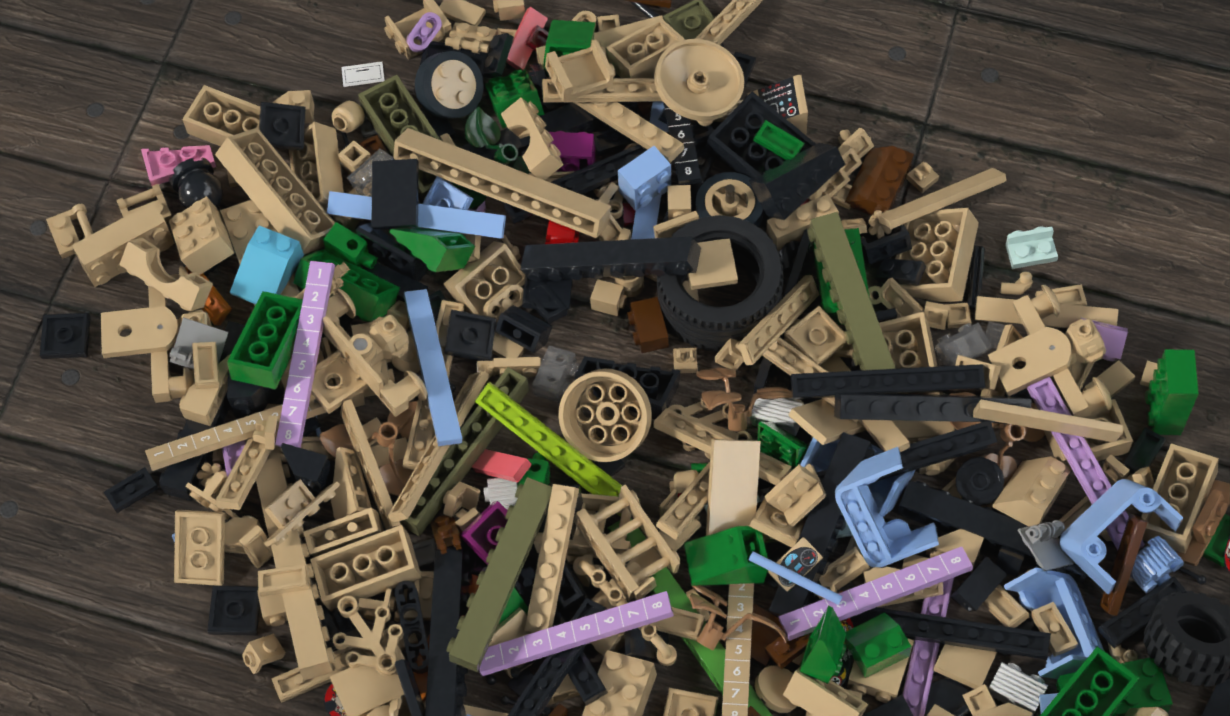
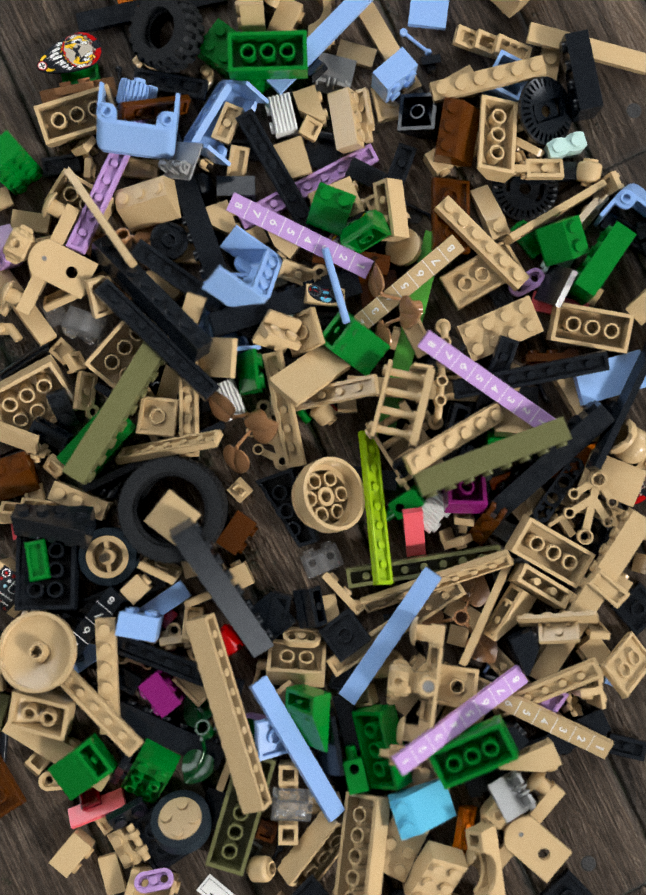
camera: 135 degrees left, 25 degrees up
(205, 365) = (522, 776): tan tile -> none
(266, 431) = (525, 691): tan tile -> none
(395, 194) = (298, 774): black tile -> none
(541, 156) = (186, 702): tan arch -> none
(580, 71) = (101, 736): tan panel -> none
(730, 355) = (213, 460): tan bracket -> none

